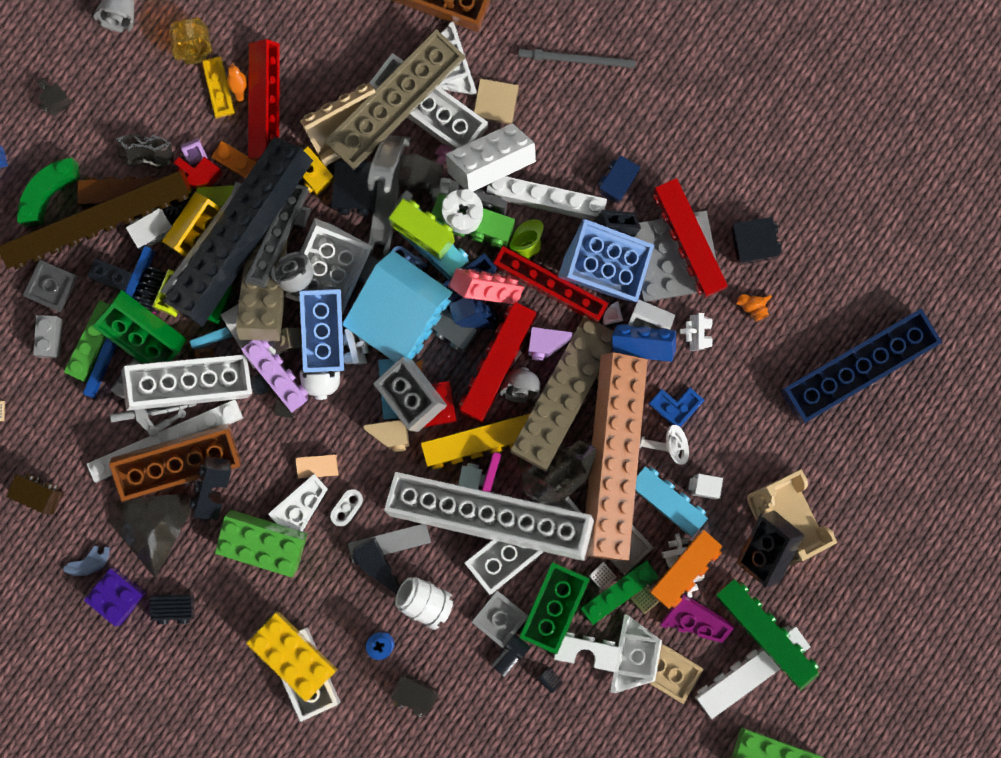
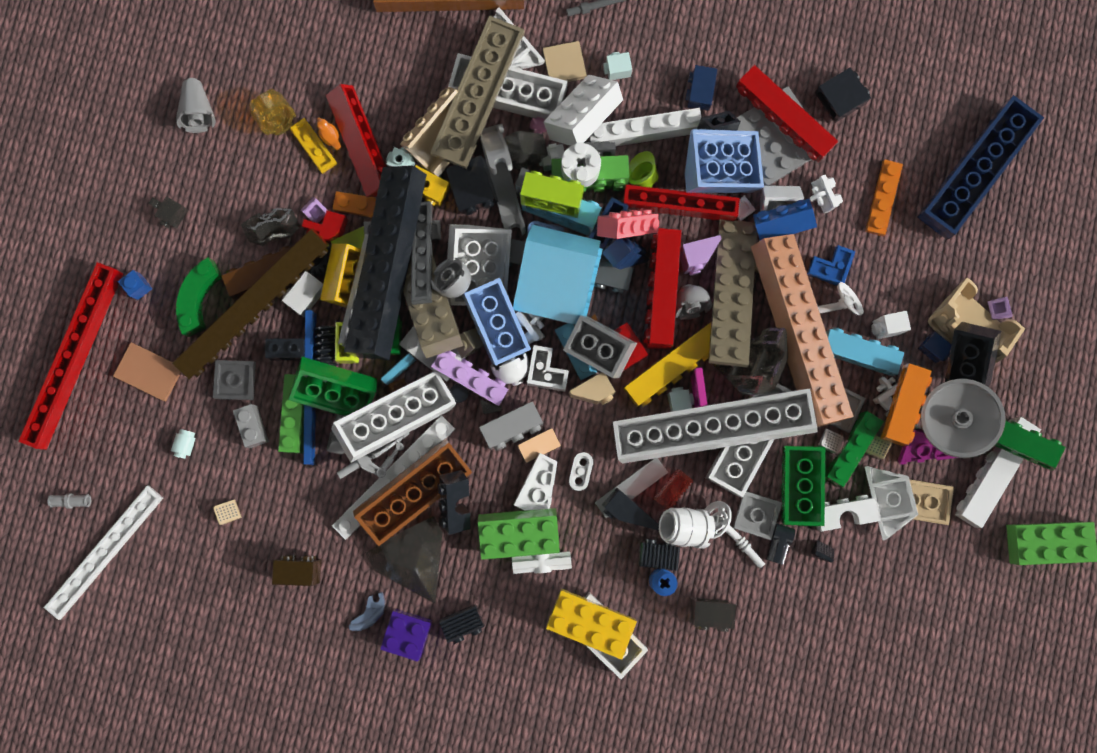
camera: 20 degrees left, 0 degrees up
(272, 581) = (541, 563): none -> white piece
(289, 130) = (393, 158): none -> light aqua brick
(296, 438) = (512, 426): none -> light grey brick
(346, 396) = (542, 374): none -> white brick
(387, 619) = (658, 555): none -> black brick
(426, 561) = (673, 489): none -> clear red brick
(461, 613) = (723, 523): none -> white dish
(546, 125) = (618, 66): none -> light aqua brick
(733, 604) = (963, 418): none -> light grey dish
(742, 525) = (935, 347): none -> dark blue brick
(754, 306) = (864, 152): orange animal -> none
(755, 358) = (884, 198): none -> orange plate
(824, 513) = (1000, 308): none -> lavender slope

